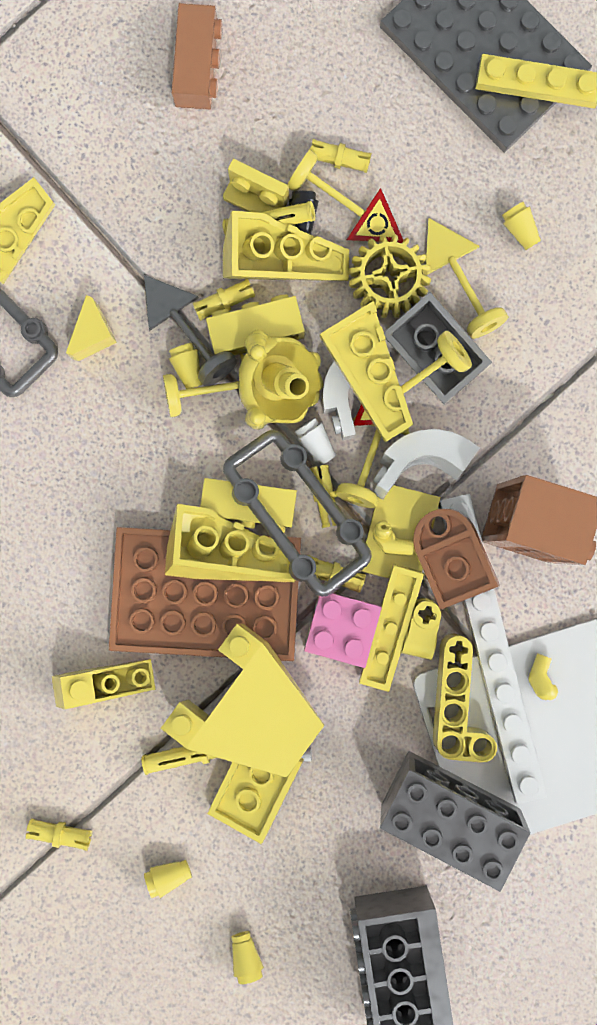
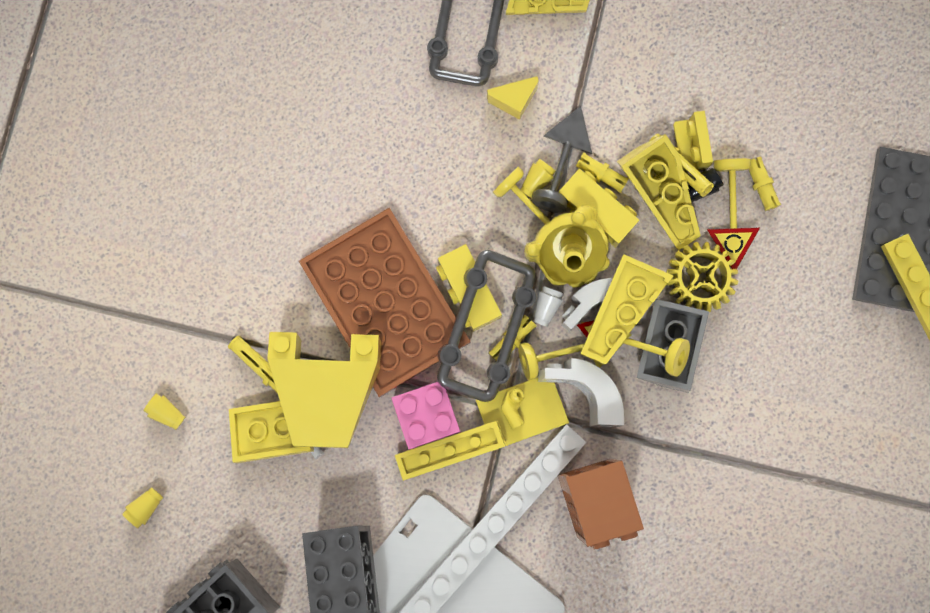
camera: 60 degrees right, 5 degrees down
(58, 834) = (145, 315): light yellow pin -> none
(102, 683) = (272, 273): light yellow slope -> none
(196, 56) = (759, 37): nougat brick -> none
(217, 549) = (422, 288): light yellow wedge -> none
(327, 570) = (459, 374): light yellow pin -> none
(422, 634) = (459, 475): light yellow piece -> none
(446, 247) = (751, 304): light yellow piece -> none
(454, 560) = (529, 461): nougat plate -> none
(457, 695) = (434, 533): light yellow beam -> none
(522, 225) = (807, 347): light yellow cone -> none
(539, 679) = (485, 587): light yellow arm -> none

